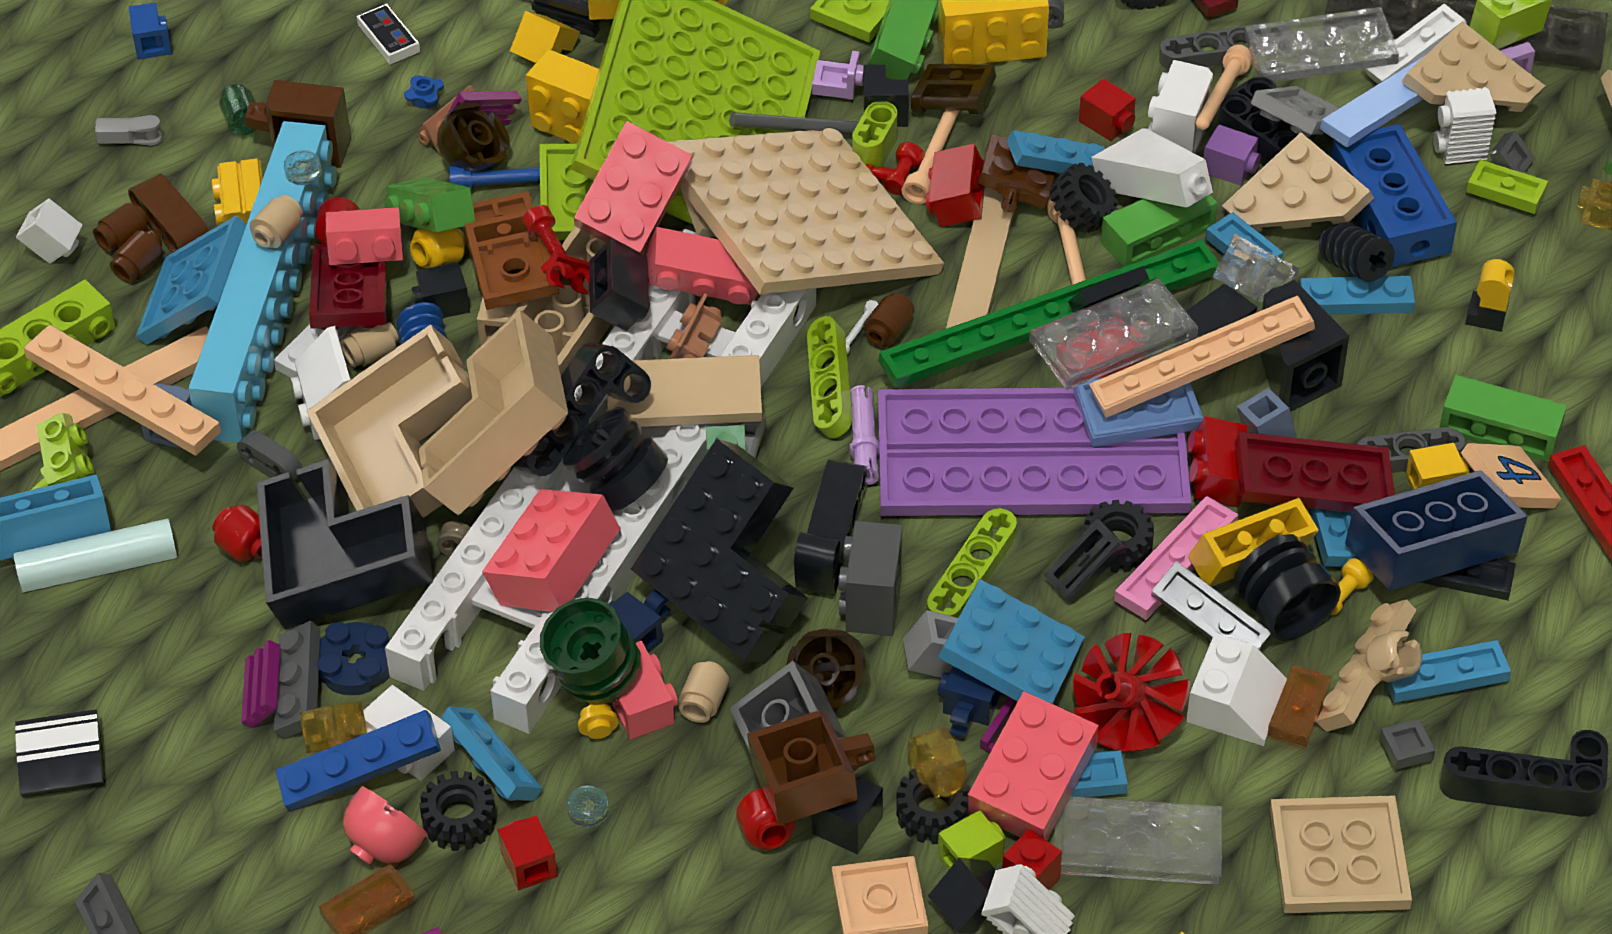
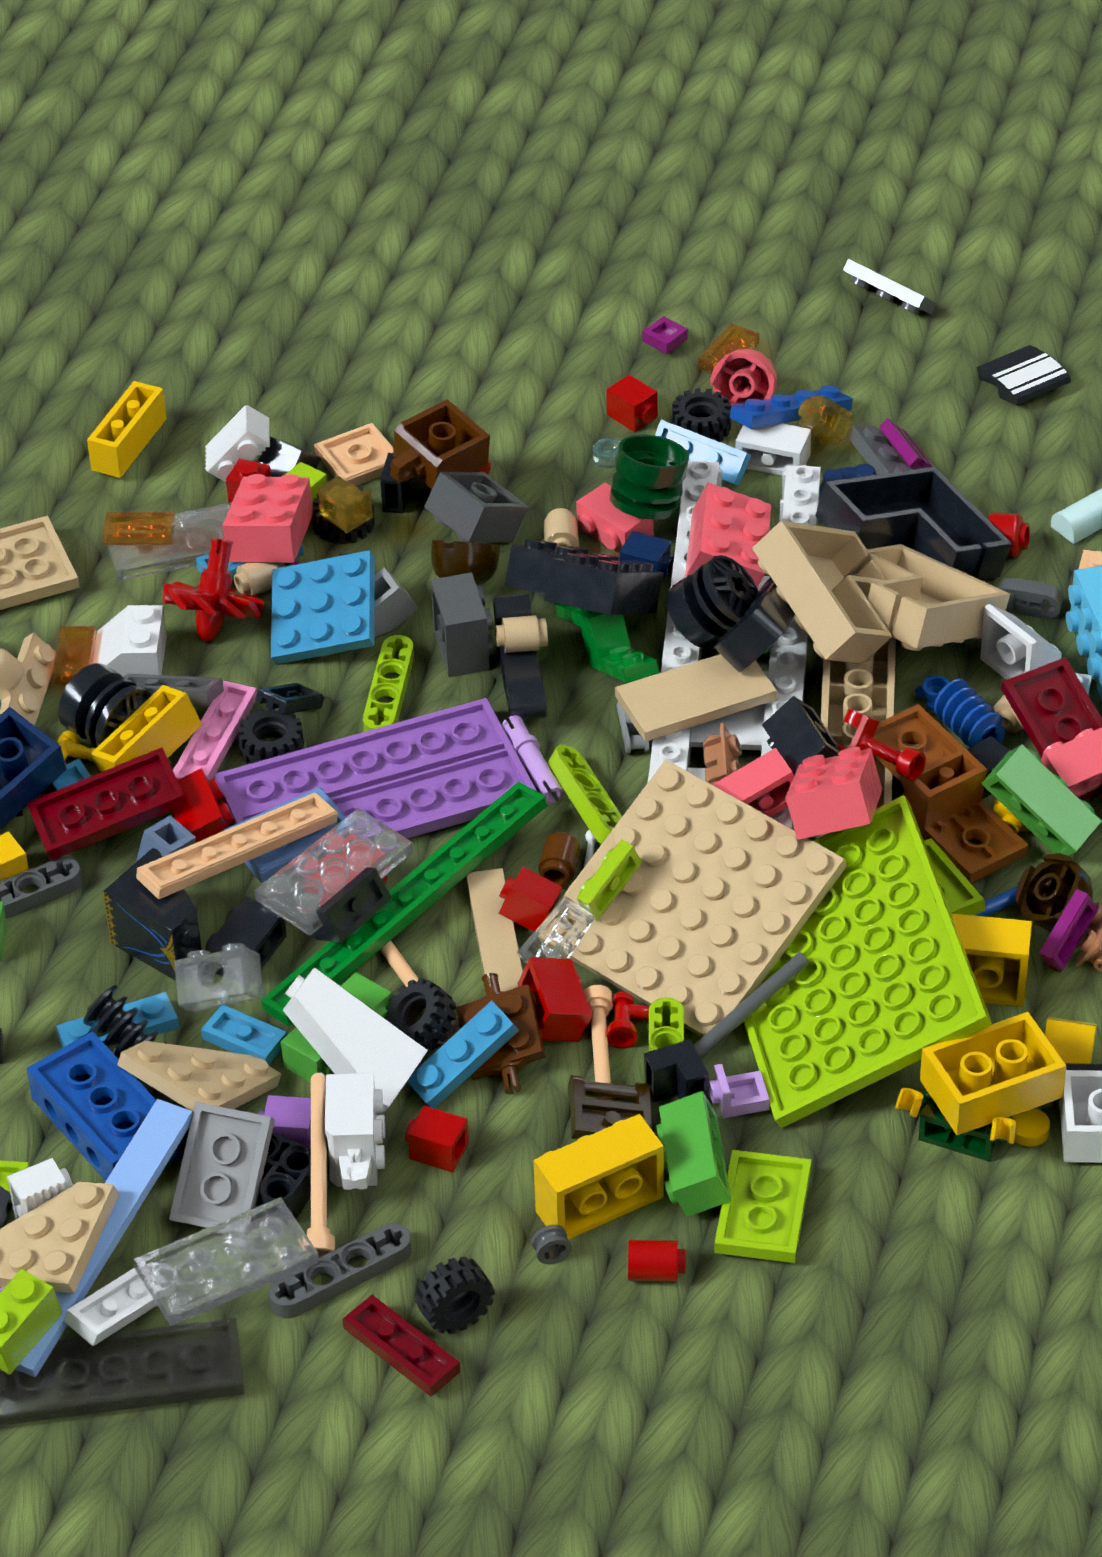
camera: 160 degrees right, 5 degrees down
(820, 518) = (522, 634): none -> tan brick
(868, 221) = (608, 881): none -> lime plate
(934, 230) = (546, 931): none -> clear slope
(936, 277) = (528, 898): none -> red brick
(1184, 822) = (139, 528): none -> clear orange plate

